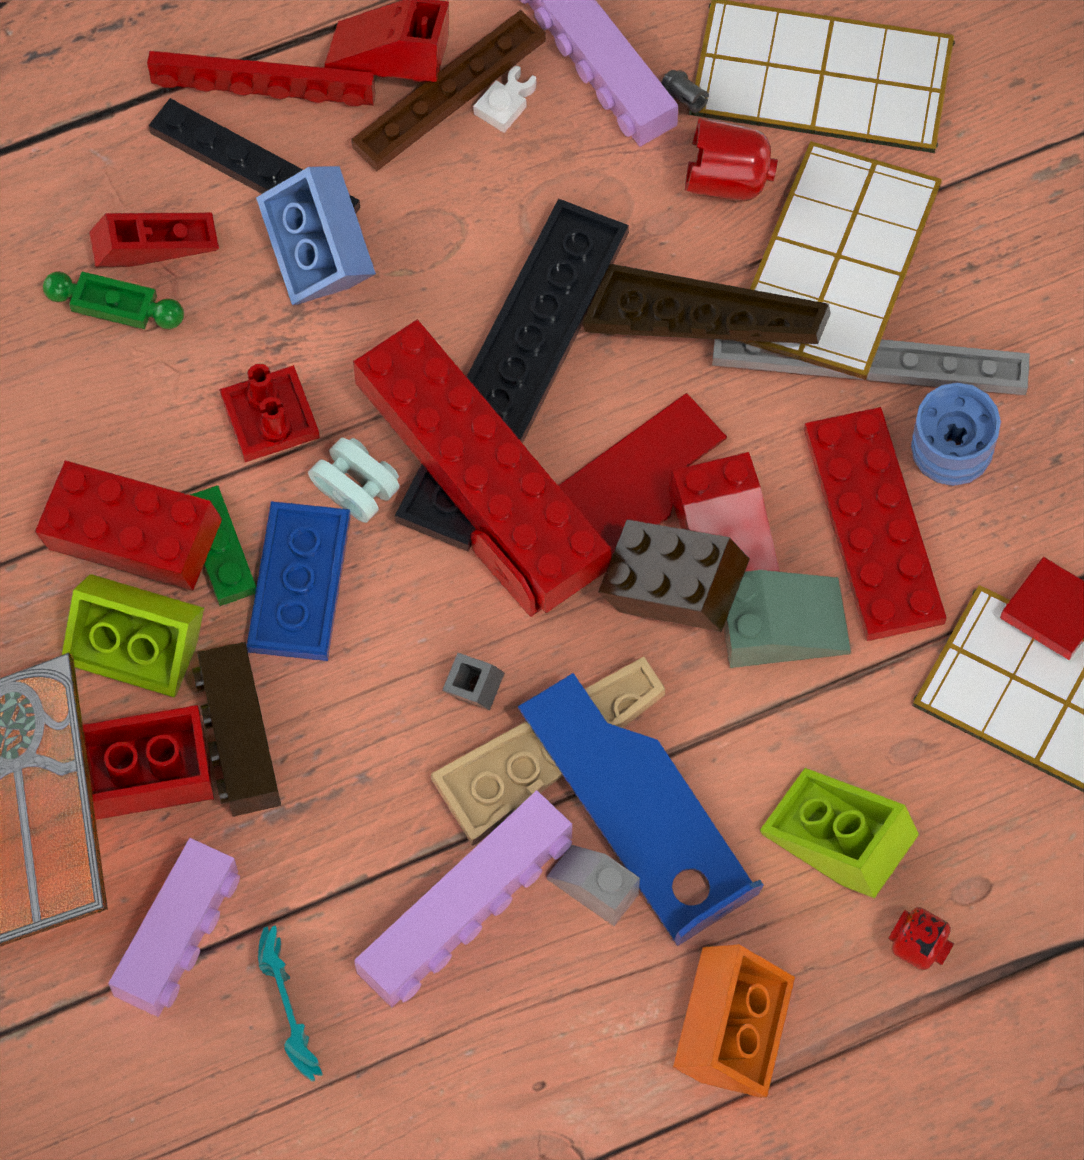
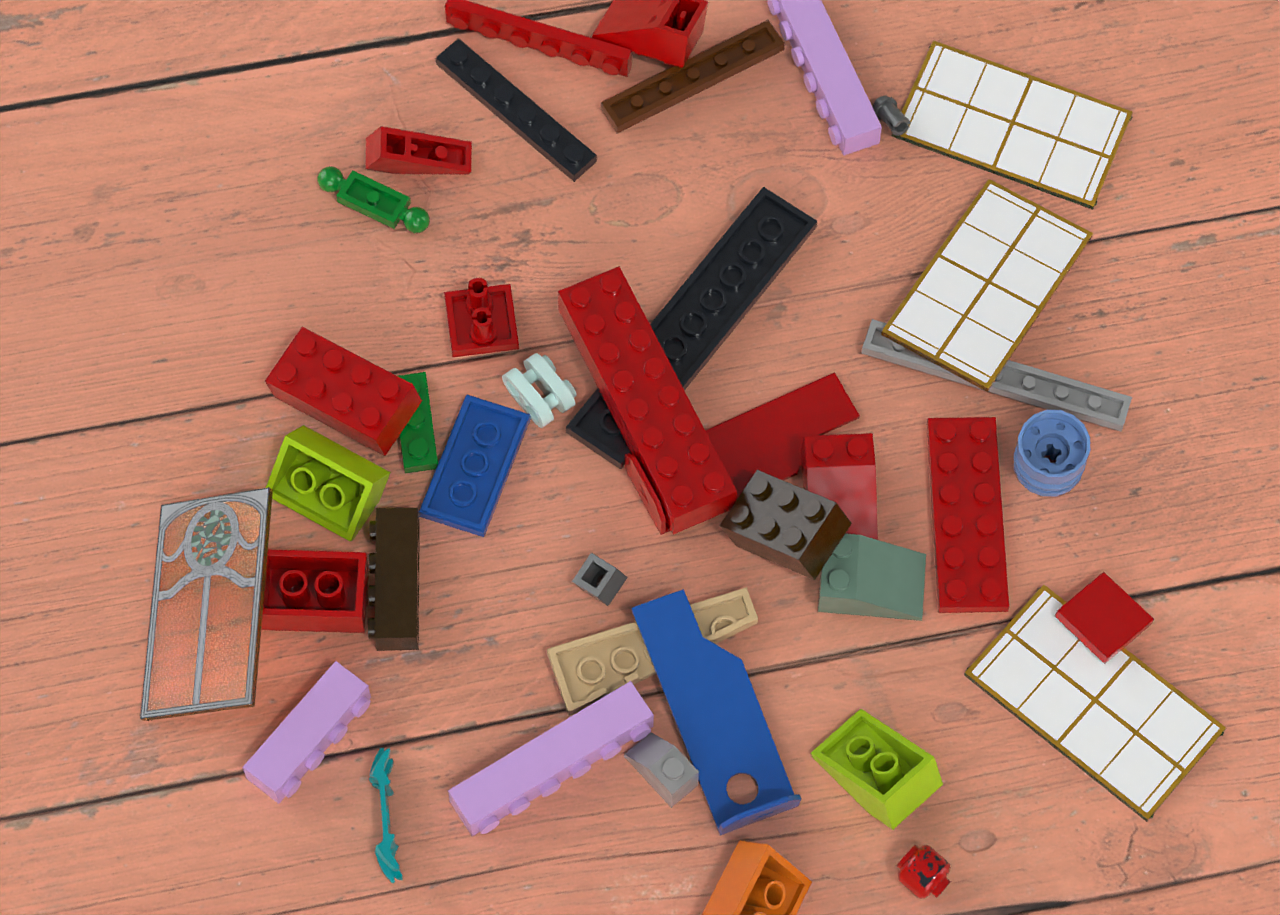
camera: 10 degrees right, 0 degrees up
(315, 234) = (552, 177): medium blue slope -> none
(504, 103) = (738, 96): white plate -> none
(677, 306) = (842, 298): dark brown wing -> none
(730, 161) = (916, 183): red cylinder -> none

